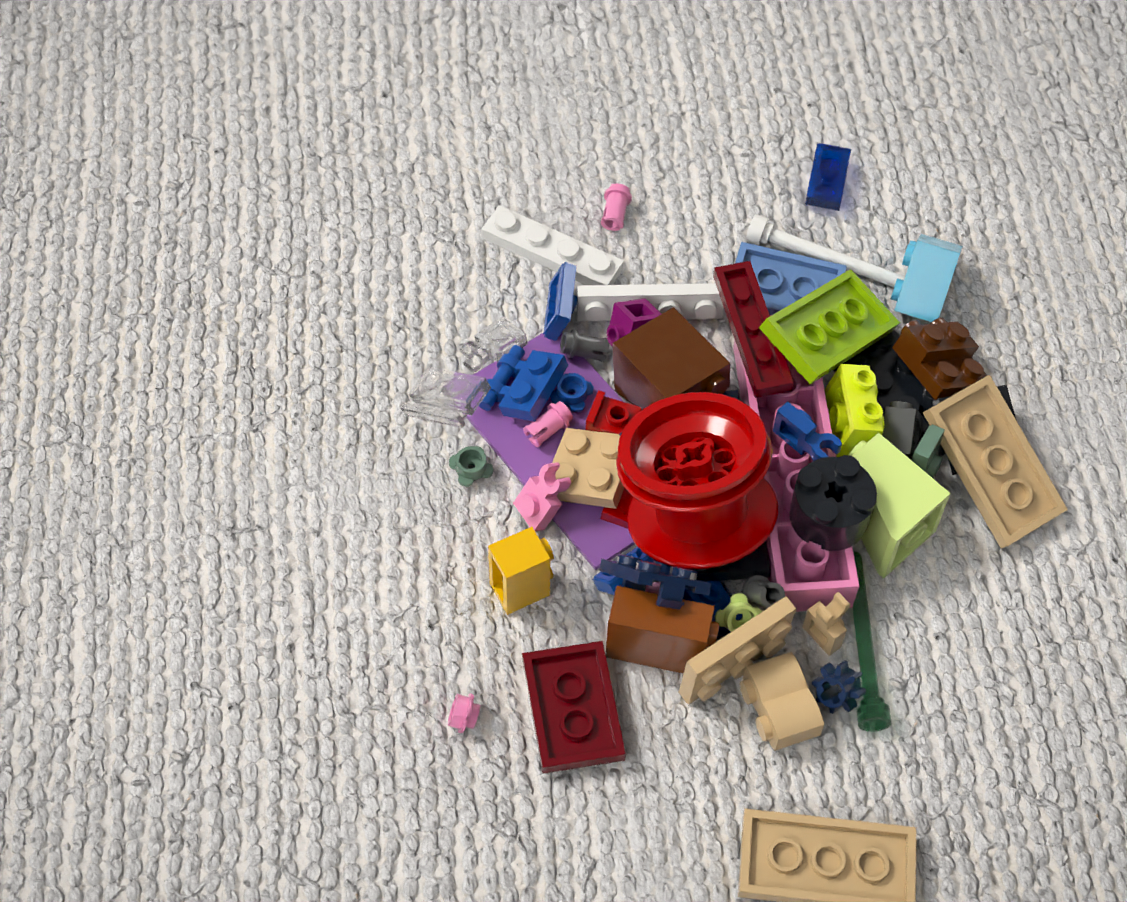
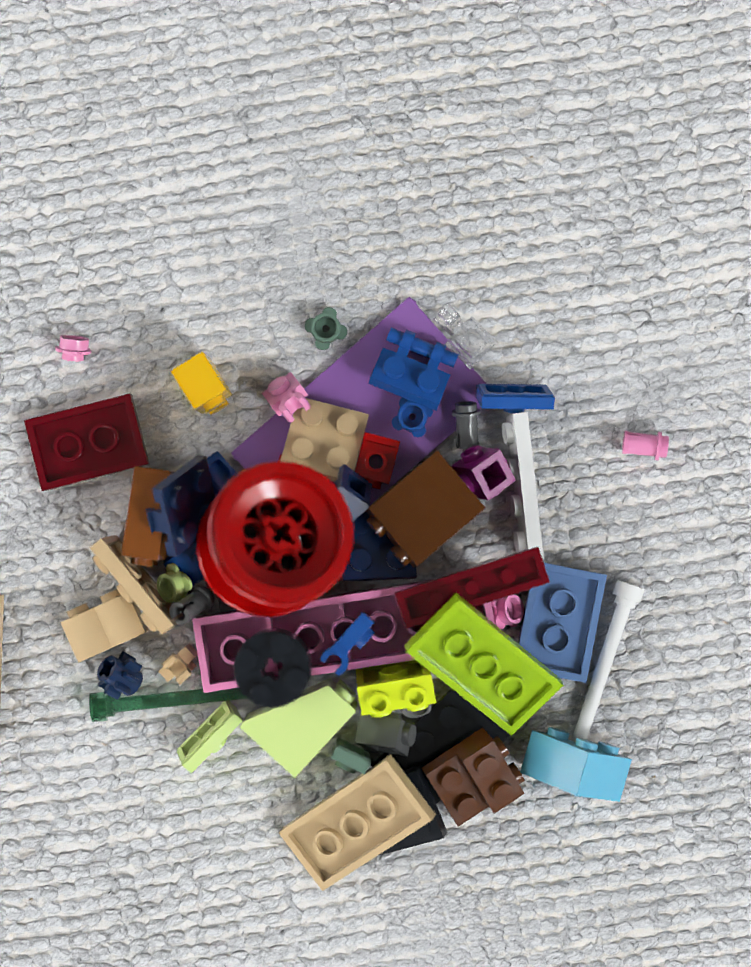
camera: 90 degrees right, 30 degrees up
(445, 396) = (393, 295): clear plate -> none
(549, 423) = (372, 397): bright pink pin -> none
(550, 247) = (589, 383): white plate -> none
(828, 176) = (705, 663): clear blue plate -> none
(905, 603) = (209, 736): none -> yellowish green plate

